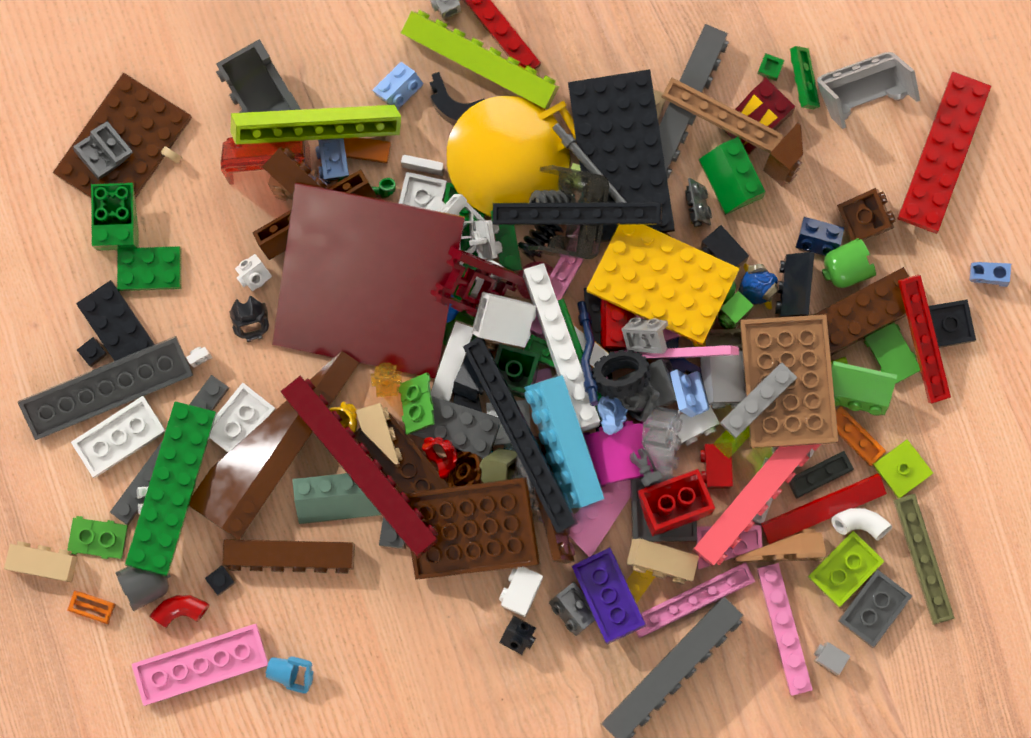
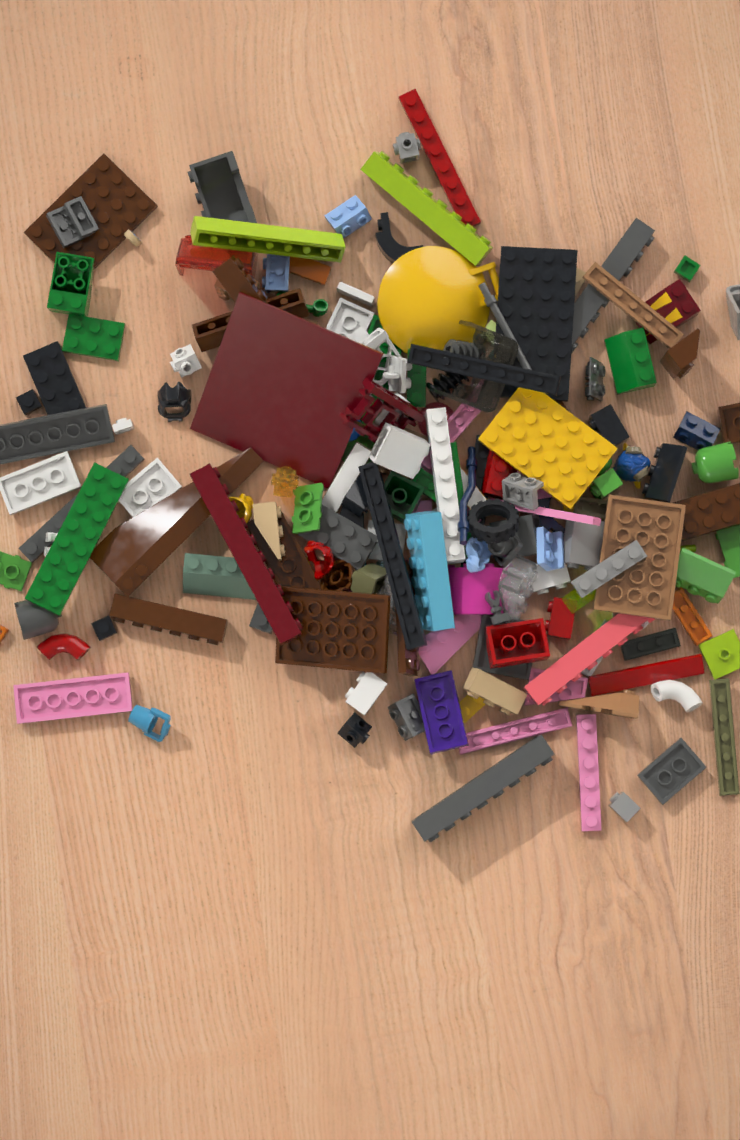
camera: 10 degrees right, 5 degrees up
(804, 77) = (715, 285): green plate -> none
(845, 569) = (653, 731): lime plate -> none

